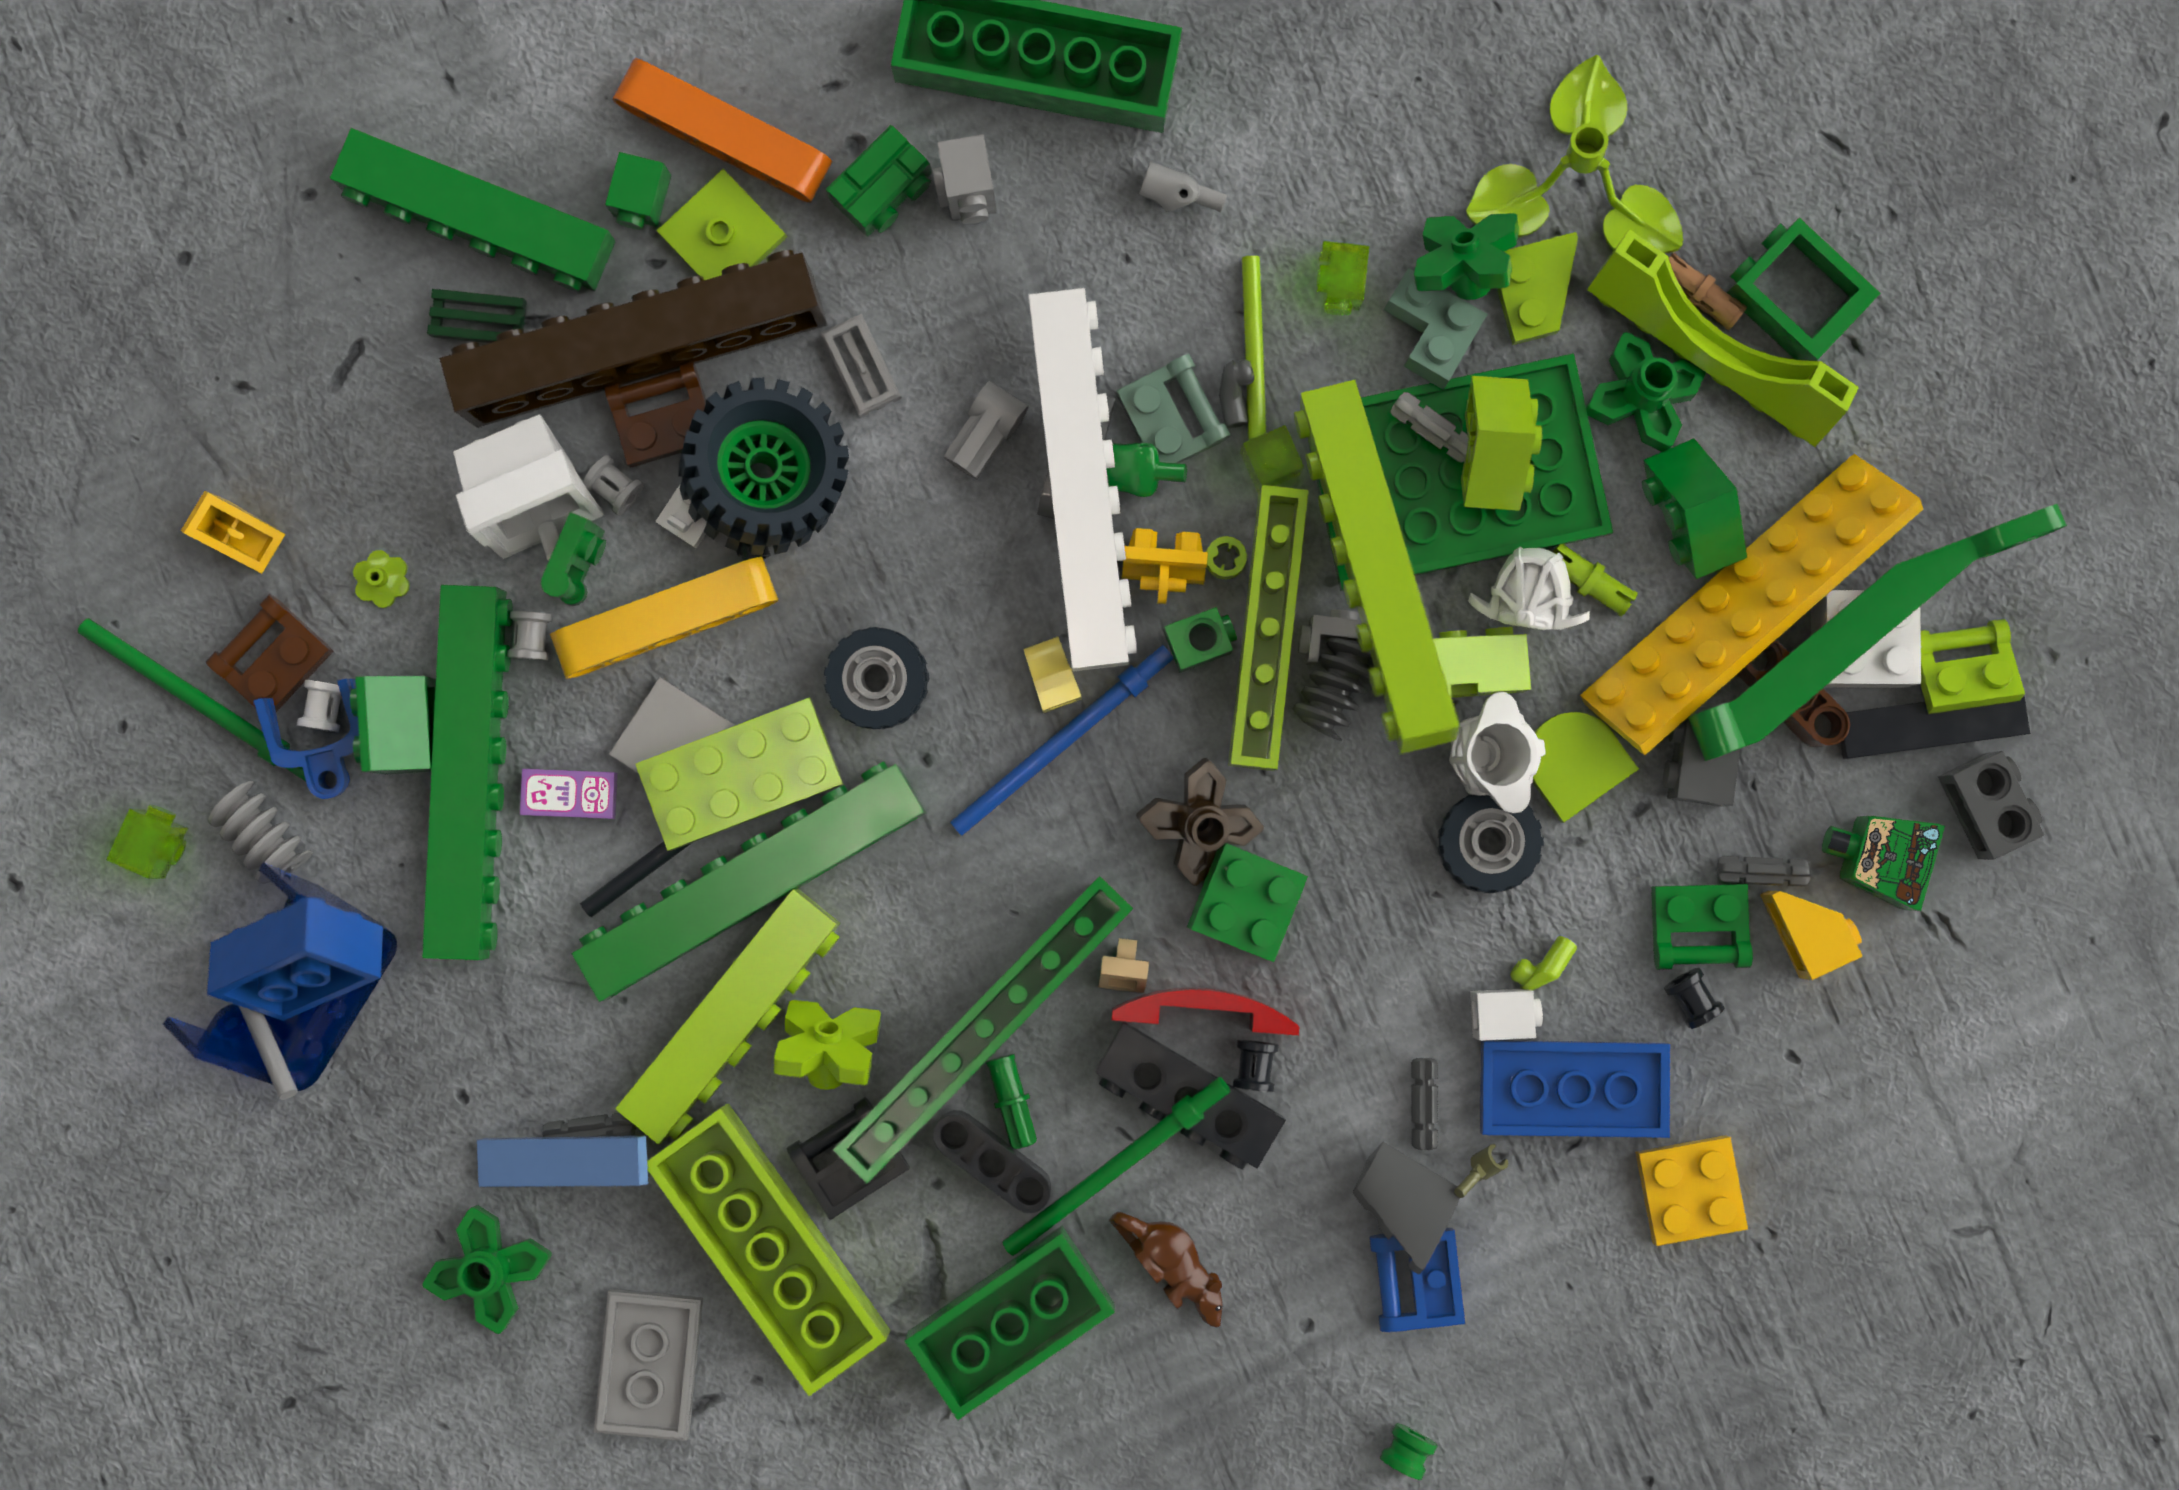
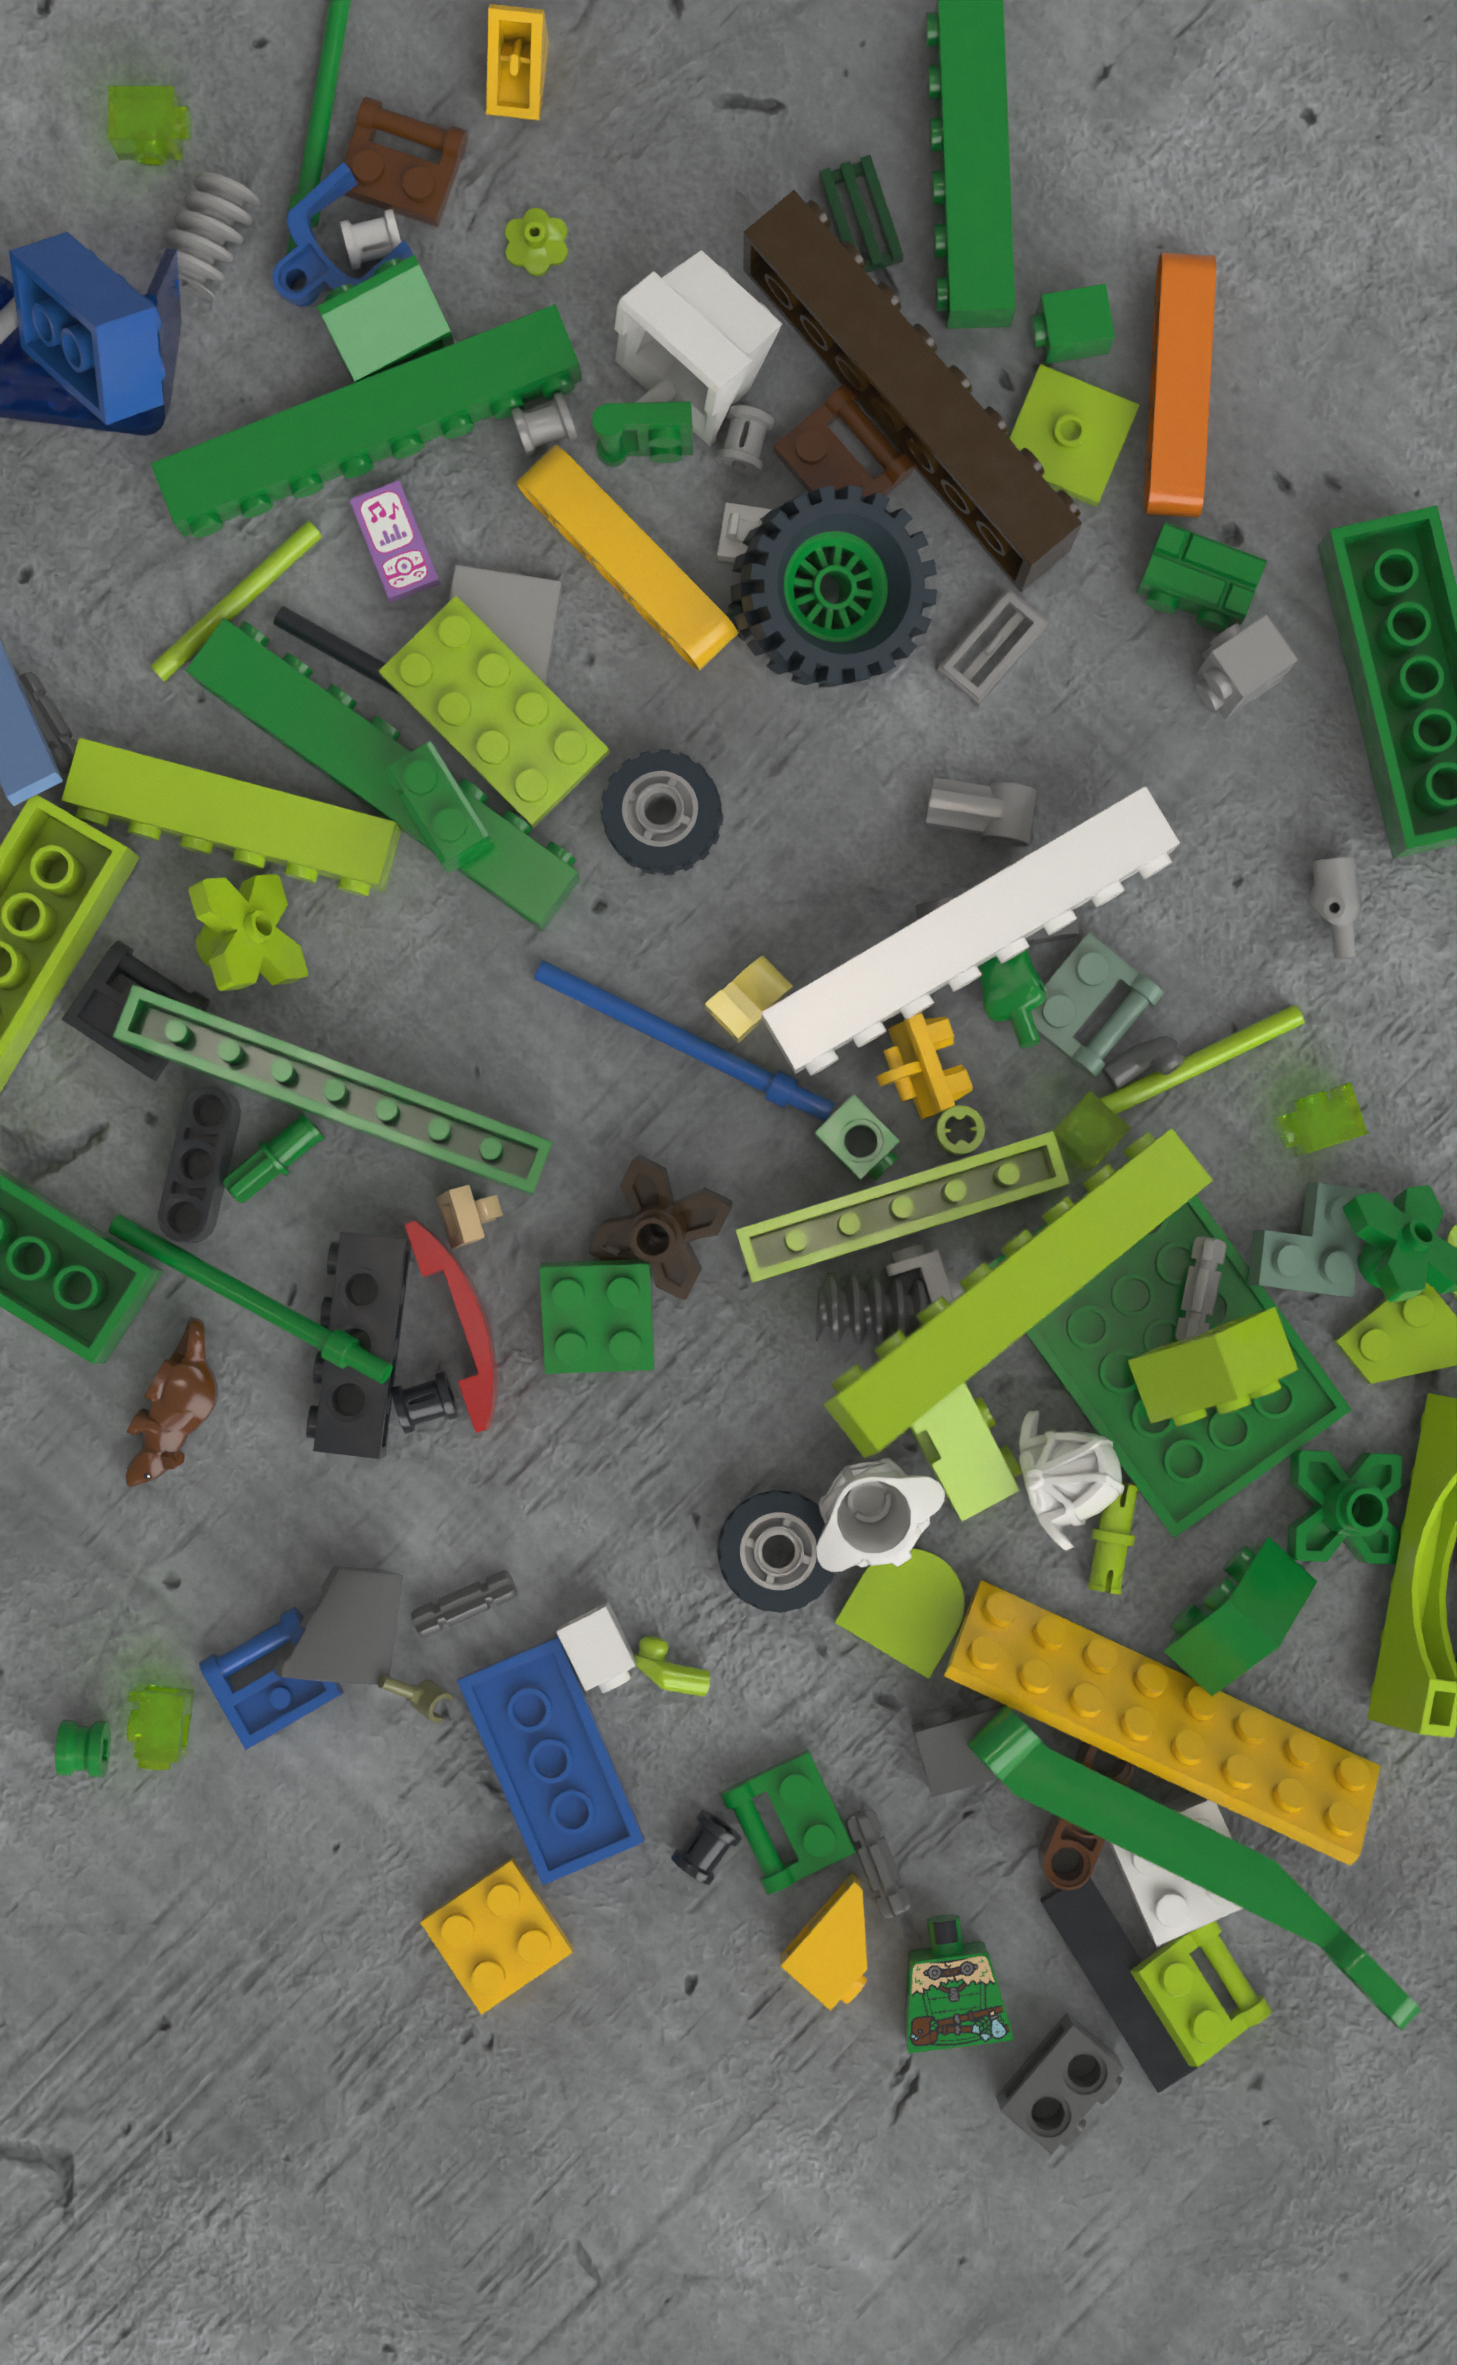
camera: 70 degrees right, 0 degrees up
(559, 938) = (236, 600): none -> lime bar
(799, 849) = (438, 807): none -> green brick
(1416, 1382) = (160, 1725): none -> clear neon green brick

